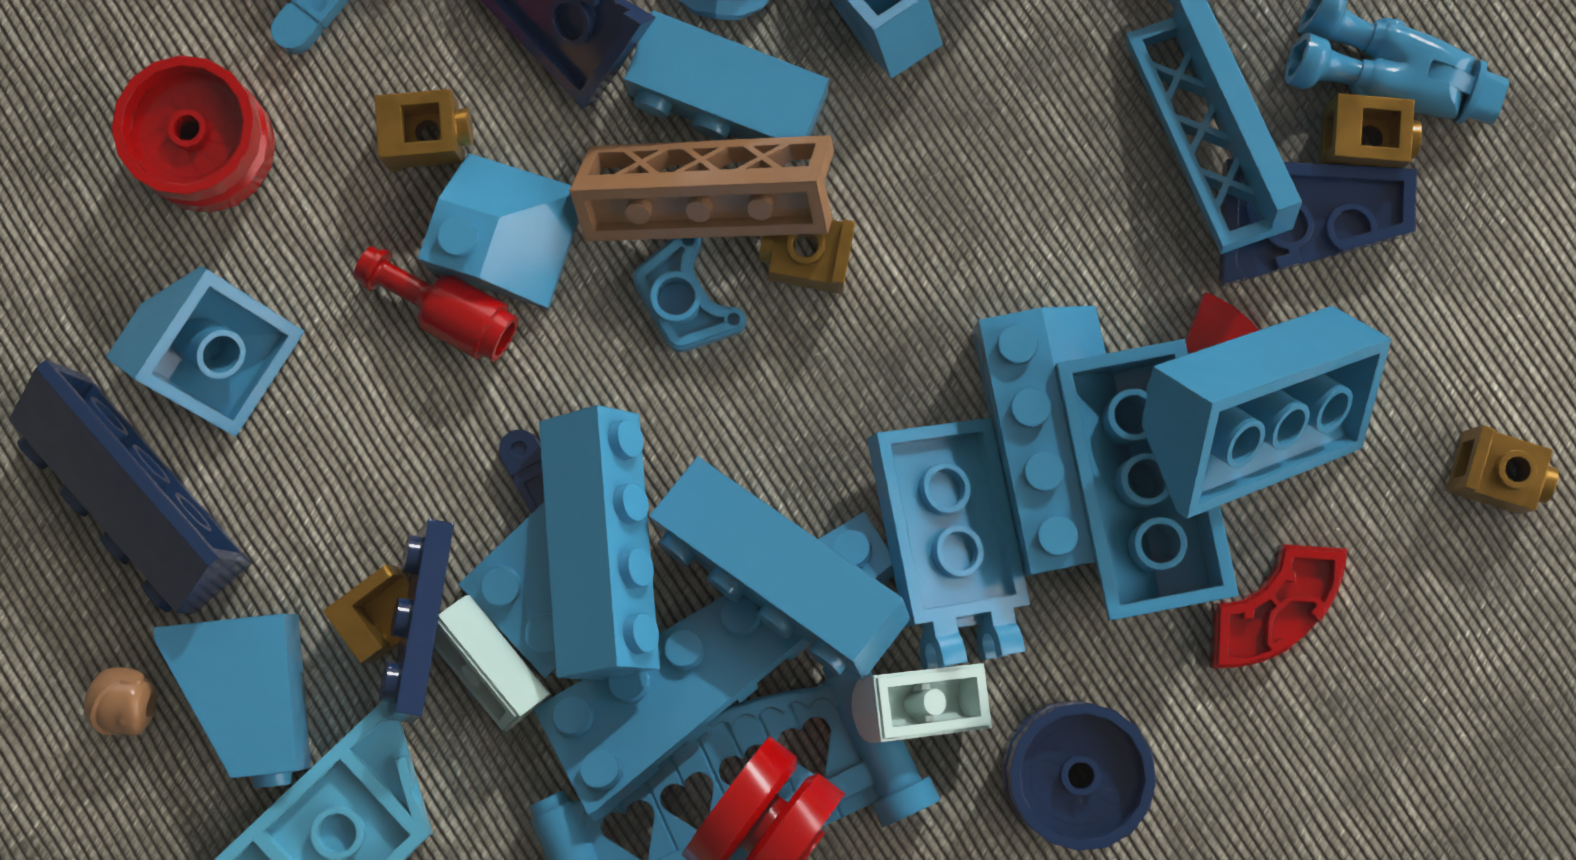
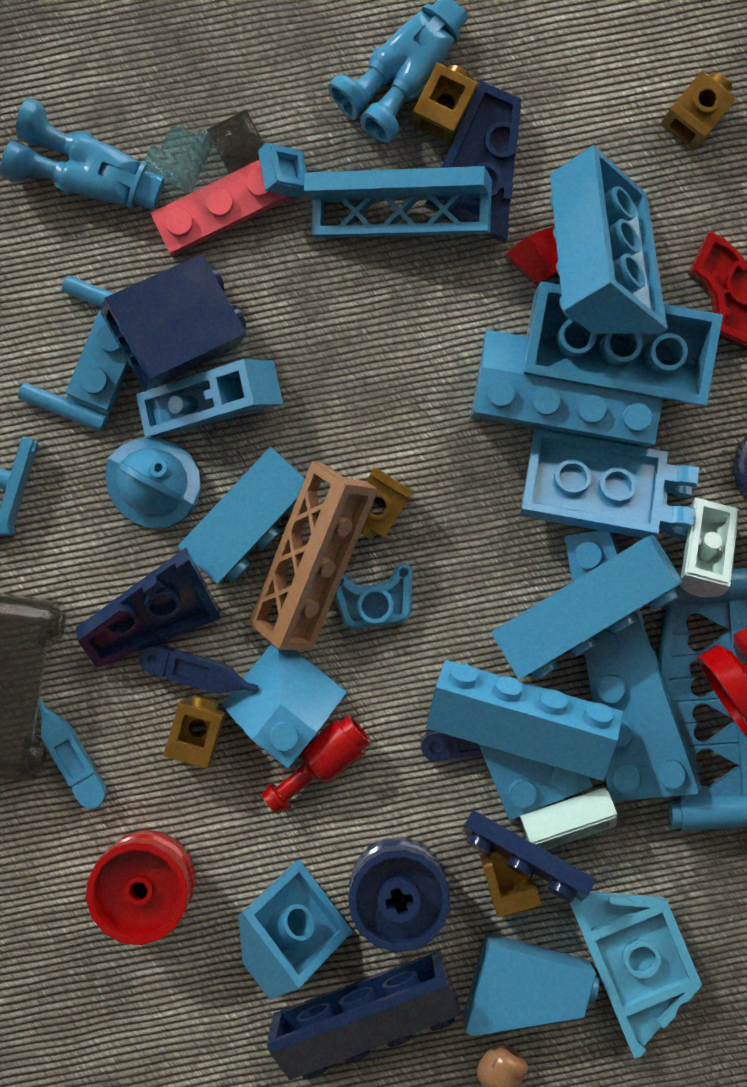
camera: 70 degrees left, 5 degrees up
(269, 461) = (405, 920): none -> dark blue wheel
(500, 97) = (193, 670): none -> dark blue piece

